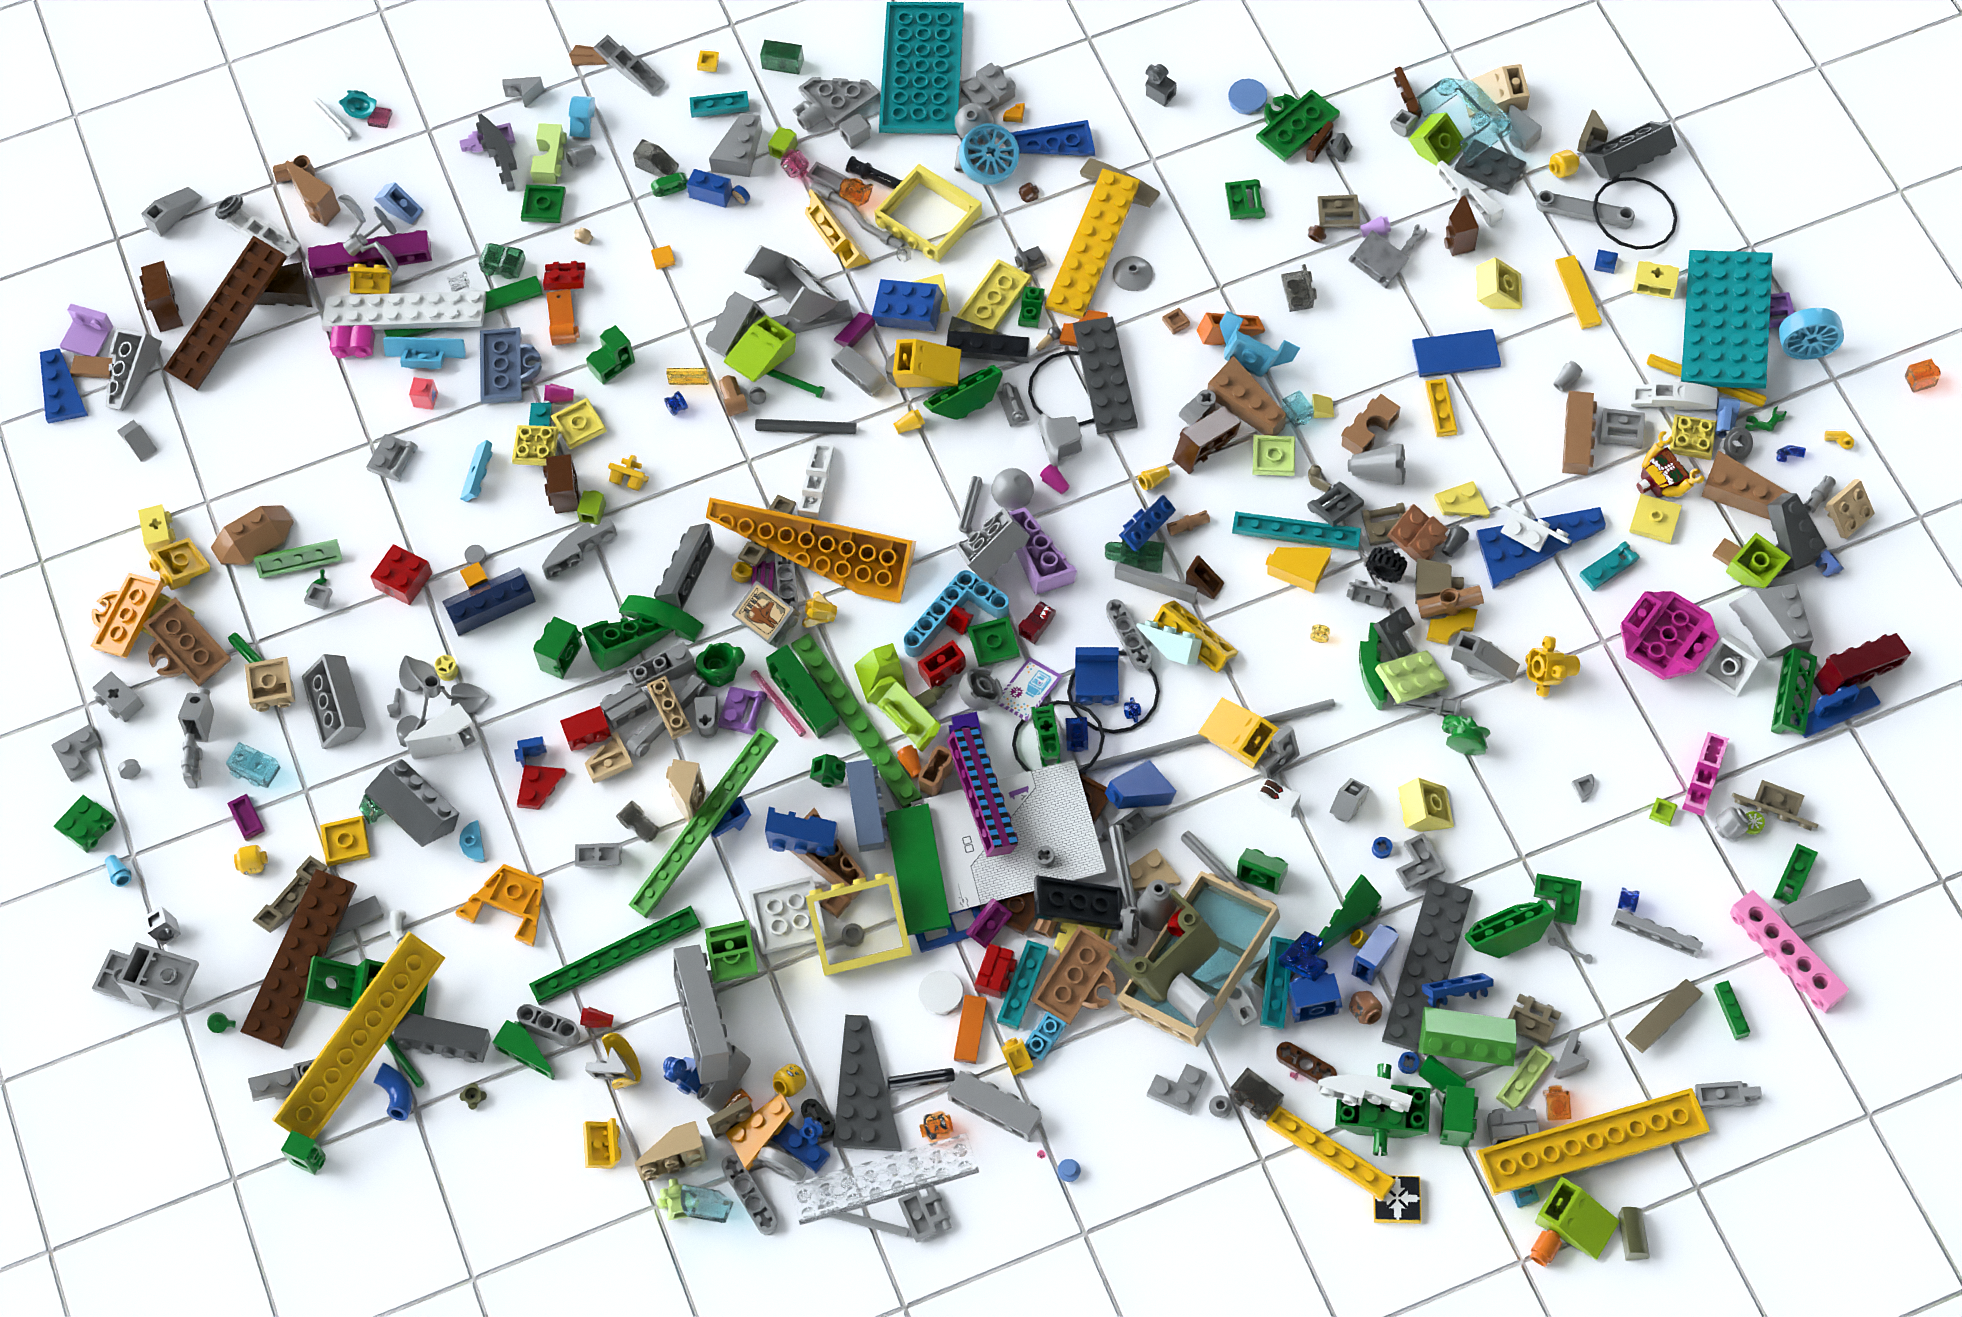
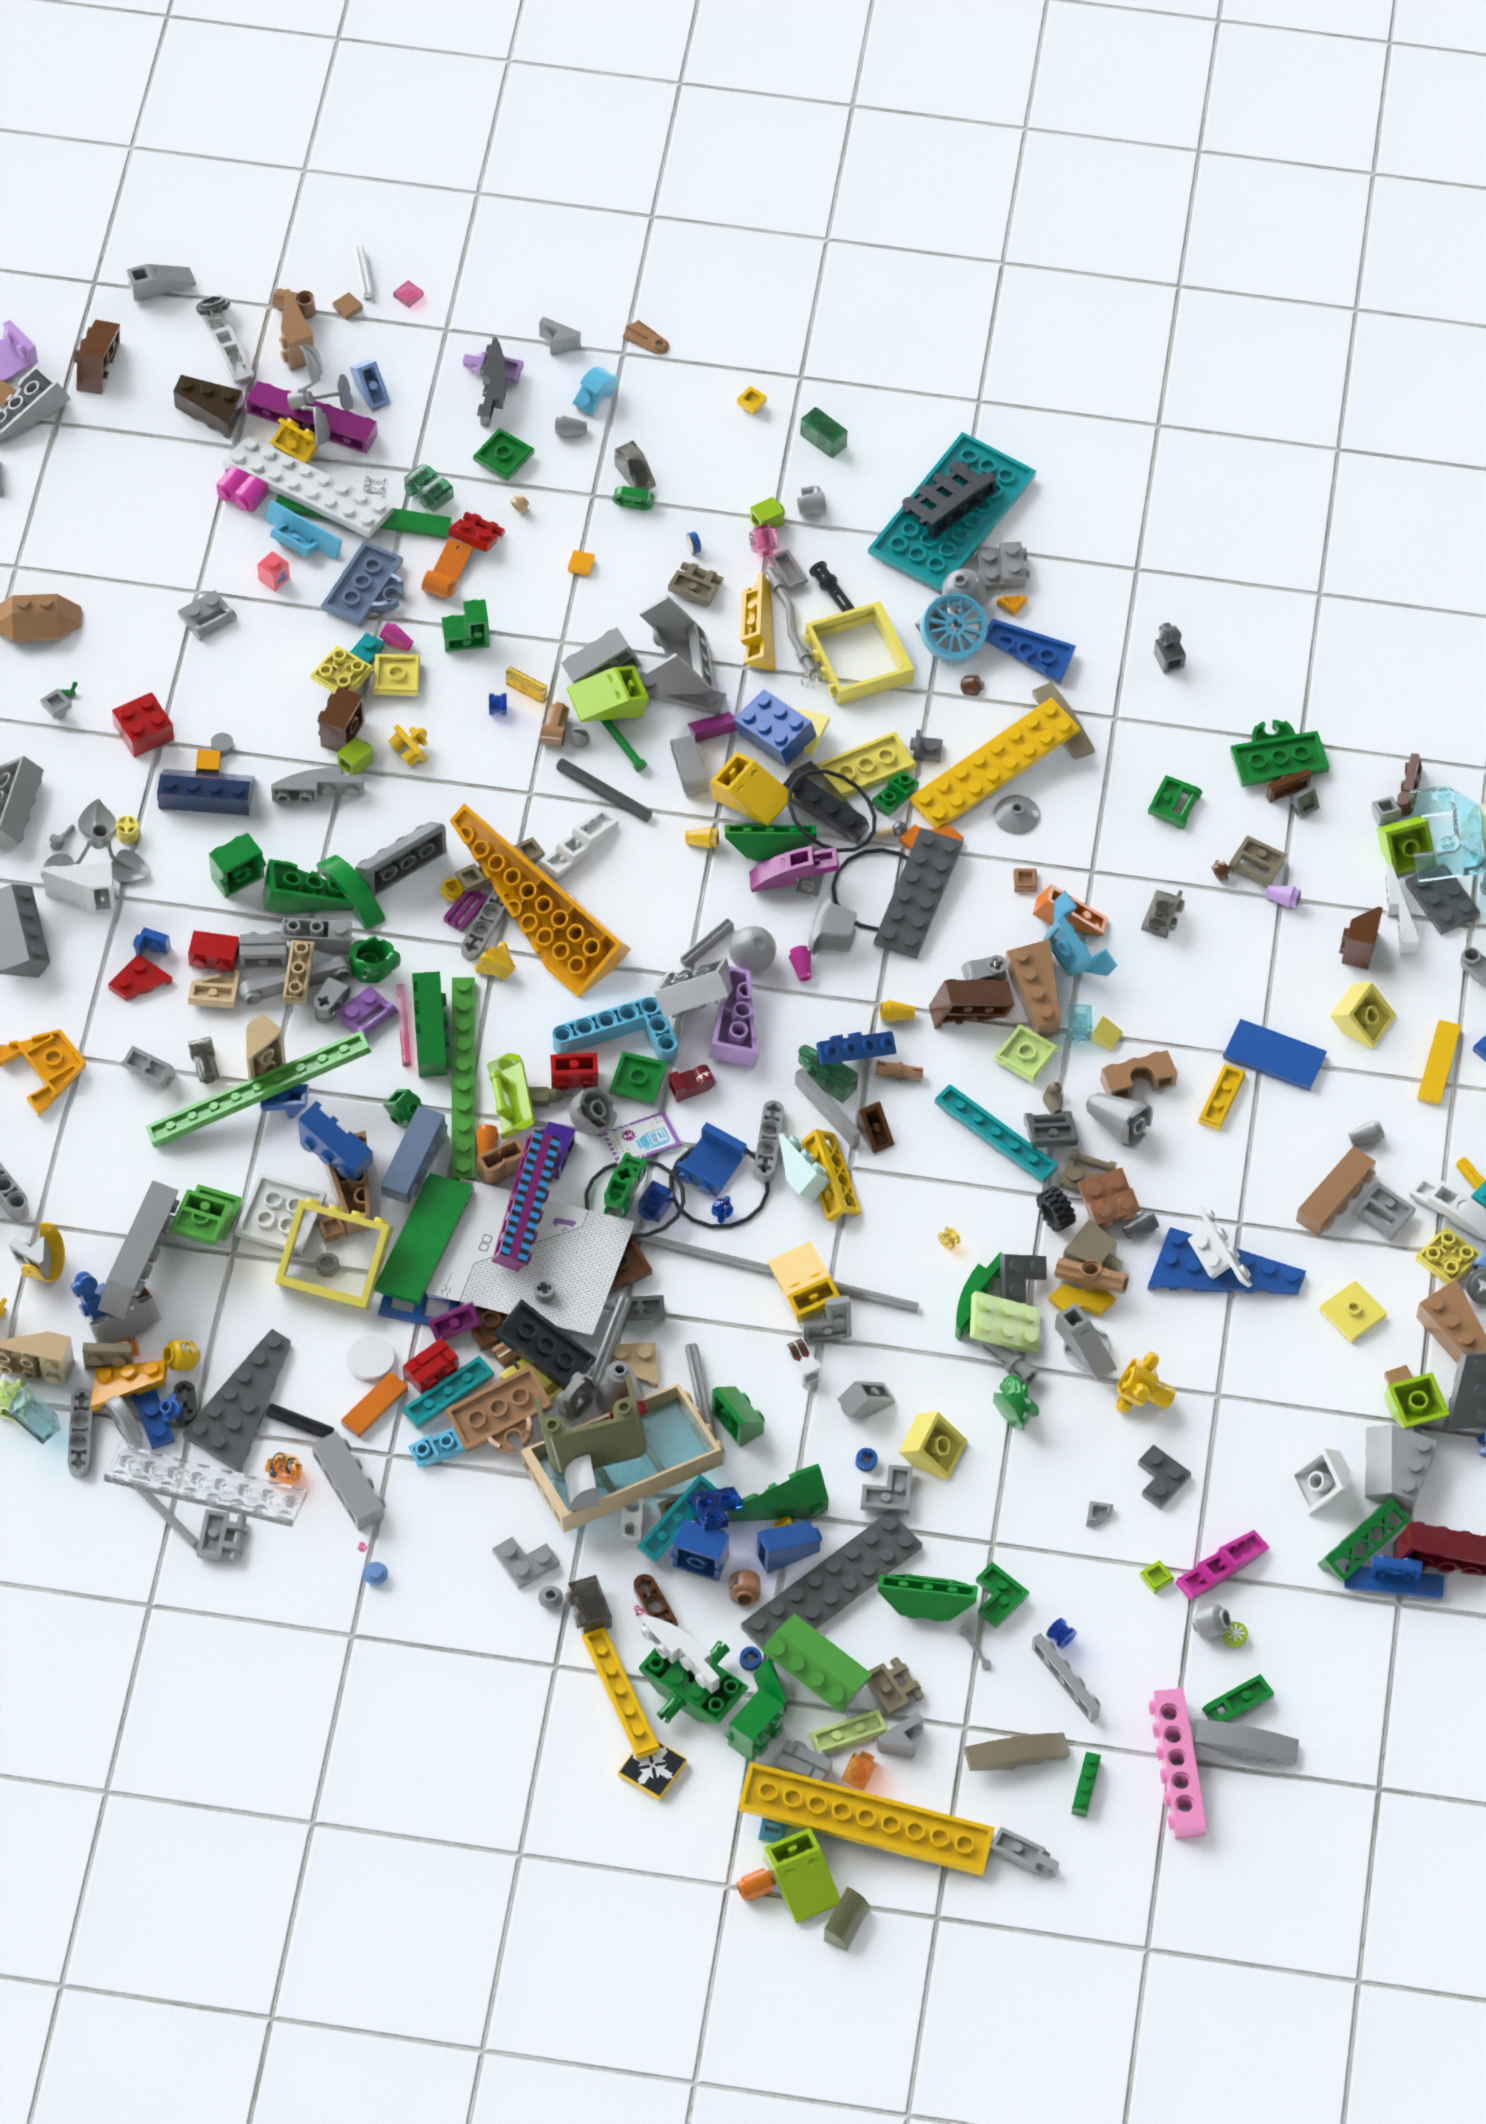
camera: 25 degrees right, 5 degrees down
(225, 313) = (141, 401): reddish brown plate -> none
(298, 558) = (61, 660): bright green plate -> none
(337, 151) = (347, 305): none -> medium nougat tile
(358, 104) = (395, 270): teal hat -> none
(471, 842) = (46, 995): medium azure plate -> none
(477, 471) = (274, 668): medium azure tile -> none
(547, 168) = (529, 421): yellowish green arch -> none
(595, 1018) = (48, 1206): red cone -> none
(614, 955) = (105, 1163): green tile -> none
(628, 65) = (674, 365): light grey slope -> none
(709, 188) = (667, 520): blue brick -> none
(719, 104) = (733, 446): teal plate -> none
(738, 147) = (722, 496): light grey wedge -> none
(764, 229) = (693, 587): none -> dark tan plate
(766, 614) = (445, 938): brick -> none
(839, 96) = (852, 499): light grey plate -> none
(855, 130) = (845, 539): light grey brick -> none
(855, 191) = (803, 596): clear orange brick -> none
(879, 664) = (518, 1039): lime slope -> none
(925, 56) = (959, 504): none -> black fence
(959, 619) = (621, 1040): red tile -> none
(986, 371) = (789, 804): none -> black piece
(998, 406) = (789, 866): none -> magenta slope
(1016, 1055) = (398, 1450): yellow bracket -> none
(1140, 787) = (677, 1279): blue slope -> none
(1247, 96) = (1251, 705): medium blue tile -> none
(1299, 565) = (975, 1166): yellow slope -> none
(1361, 590) = (1030, 1233): light grey hinge -> none
(1379, 258) = (1263, 926): flat silver piece -> none
(1416, 236) = (1318, 925): light grey piece -> none
(1457, 987) = (840, 1617): blue plate -> none
(1462, 501) = (1176, 1193): light yellow wing -> none
(1609, 566) = (1274, 1329): teal plate -> none
(1614, 725) = (1167, 1474): none -> dark grey plate
(1664, 473) = (1392, 1273): torso -> none
(1672, 616) = (1279, 1397): dark pink piece -> none
(1777, 800) = (1272, 1627): dark tan bracket -> none

